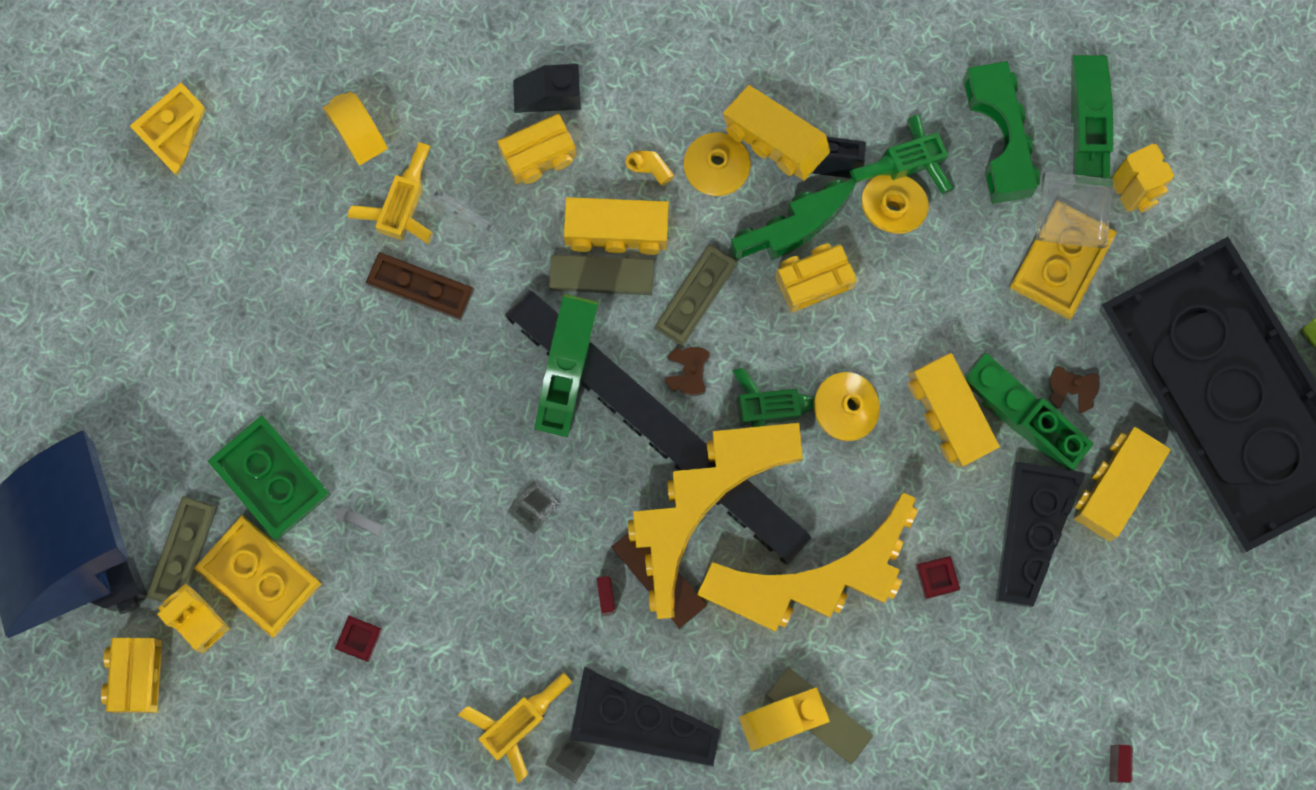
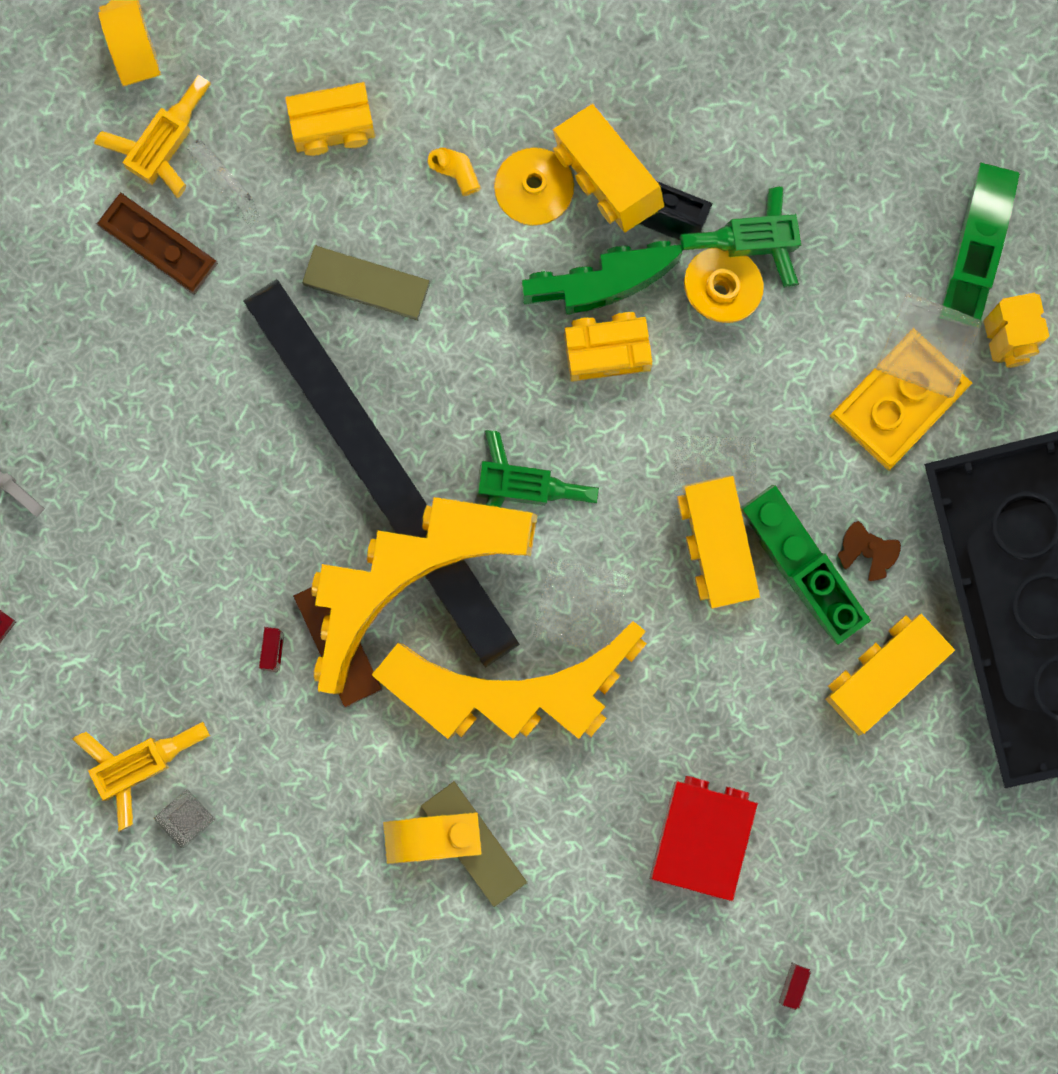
camera: 15 degrees right, 5 degrees up
(533, 507) = (219, 528): clear smoke slope -> none
(548, 89) = (363, 50): black slope -> none
(565, 365) = (292, 377): green slope -> none
(616, 225) = (397, 229): yellow brick -> none
(634, 722) = (264, 796): black wing -> none
(694, 360) = (444, 408): reddish brown piece -> none
(696, 295) = (467, 333): olive tile -> none
(832, 408) = (584, 509): yellow dish -> none
(937, 577) = (650, 725): dark red tile -> none
(992, 93) = (874, 183): green arch -> none
(1010, 660) = (704, 838): none -> red brick
(1034, 522) = (779, 690): black wing -> none

